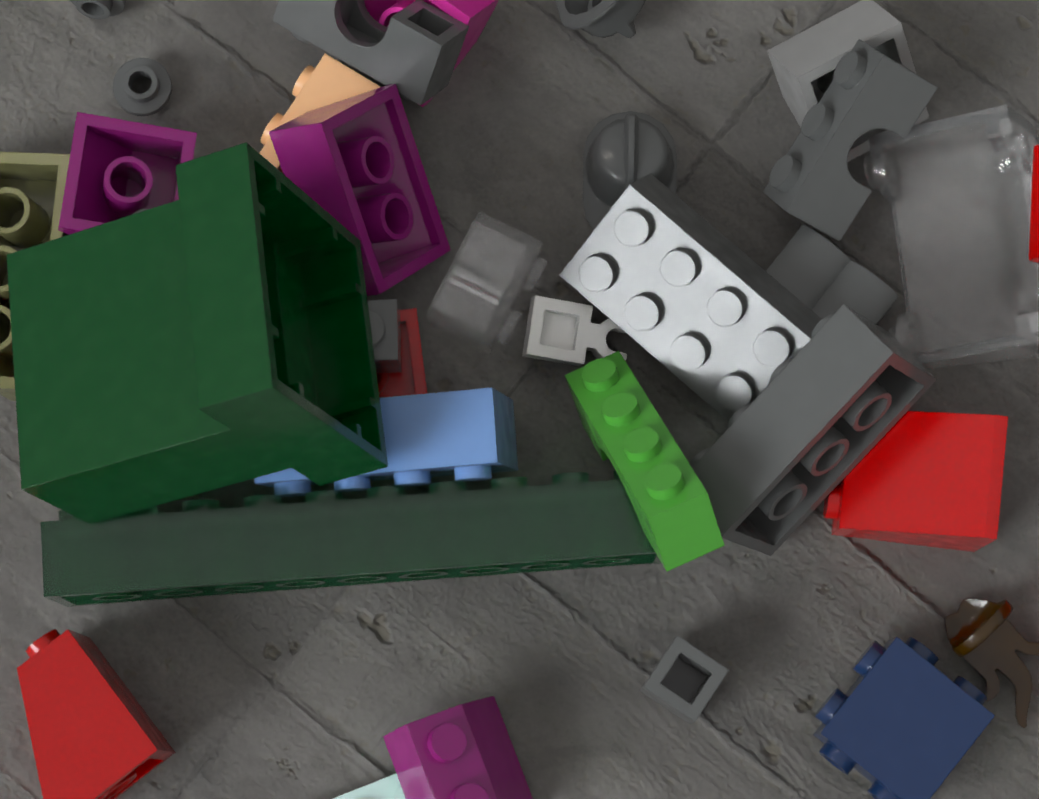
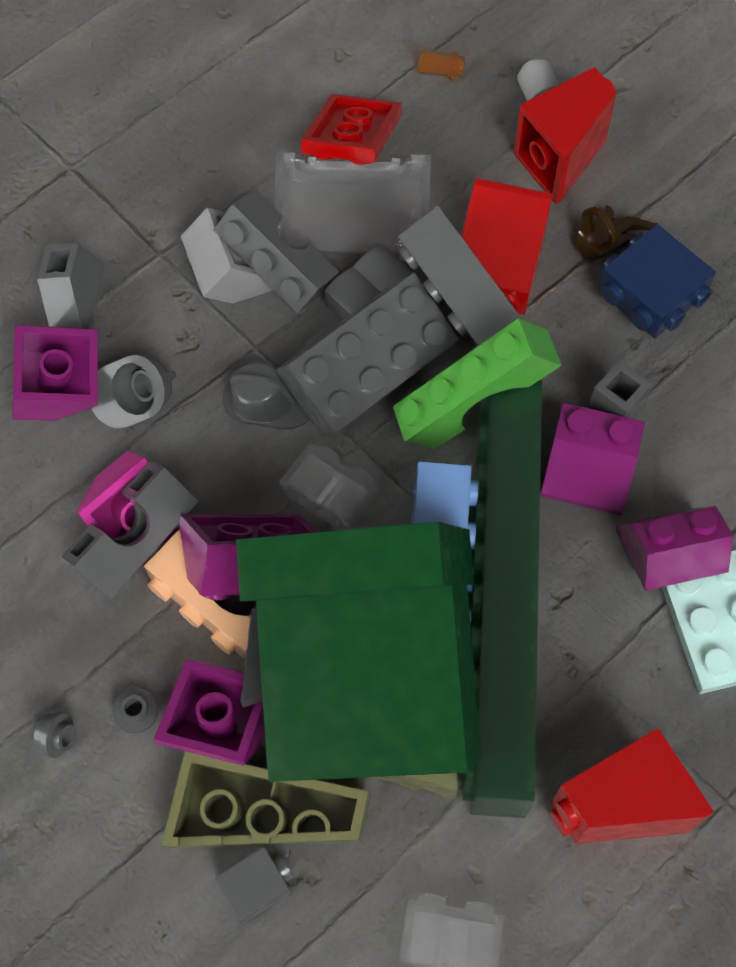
camera: 80 degrees left, 15 degrees down
(564, 331) = (372, 443): white plate -> none
(583, 649) = (592, 459): none -> magenta slope

